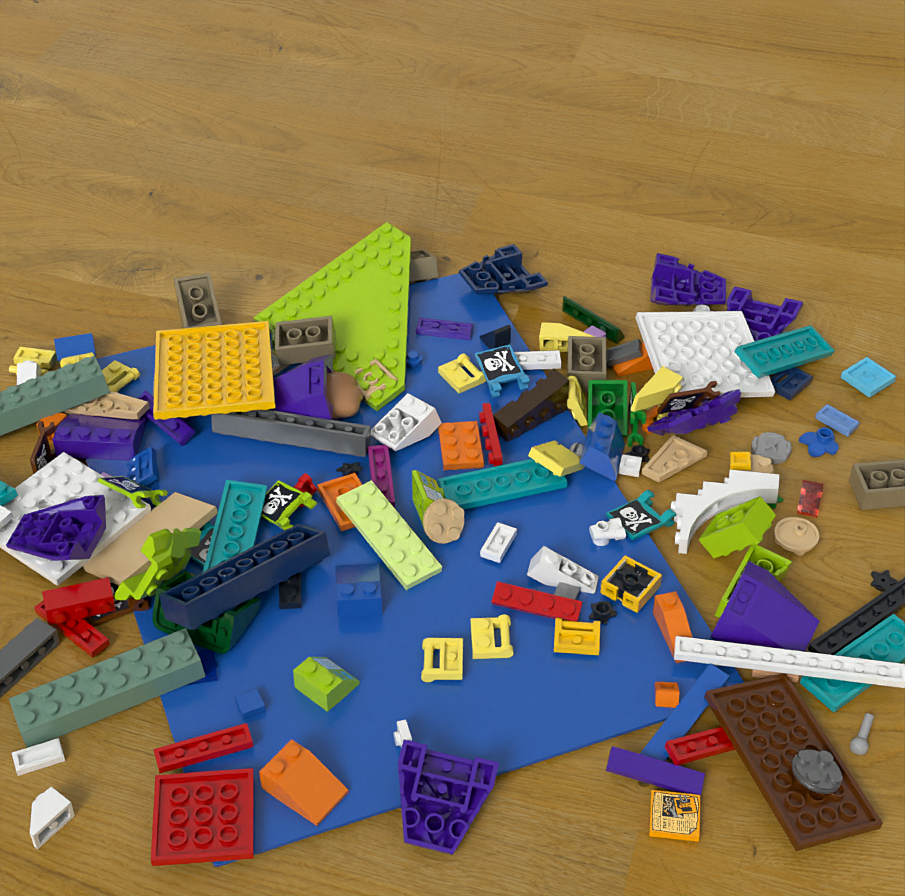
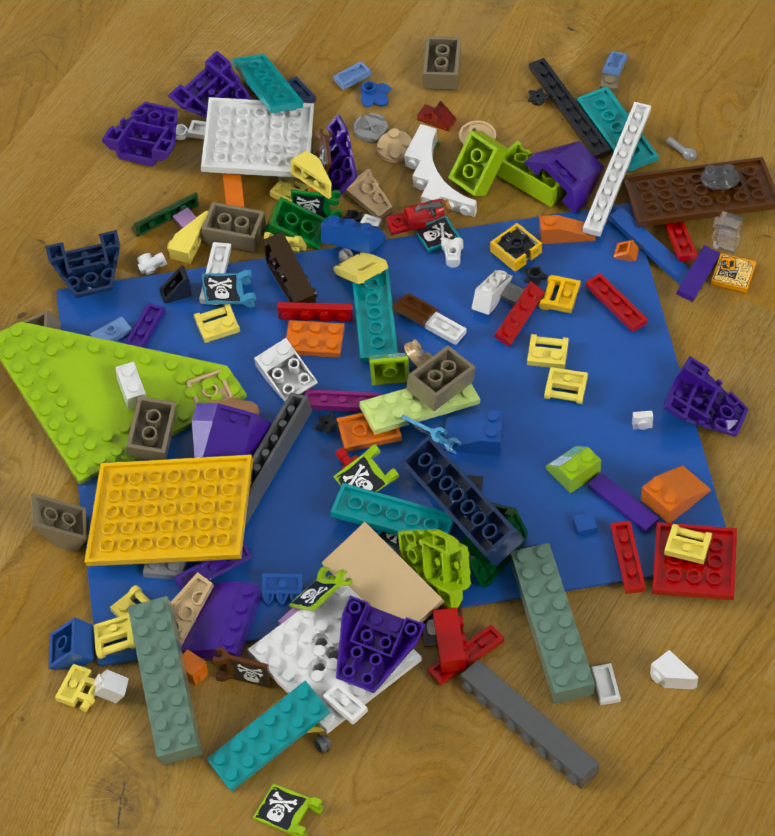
camera: 75 degrees left, 10 degrees up
(210, 795) = (687, 548): none -> light yellow plate
(291, 727) = (623, 502): none -> dark purple tile
(342, 540) = (435, 434): none -> dark azure flag
(353, 317) = (130, 384): none -> white brick
(408, 533) = (440, 378): none -> dark tan brick
(431, 308) = (113, 331): none -> medium blue plate
(516, 511) = (415, 309): none -> reddish brown plate
(526, 319) = (148, 264): none -> white plate
(578, 691) = (616, 302): none -> red plate
(623, 352) = (228, 192): dark grey tile -> none
(644, 492) = (418, 215): none -> red plate
(727, 791) = (727, 232): none -> clear brick
(740, 461) = (389, 148): yellow tile -> none
(868, 377) = (304, 41): medium azure plate -> none

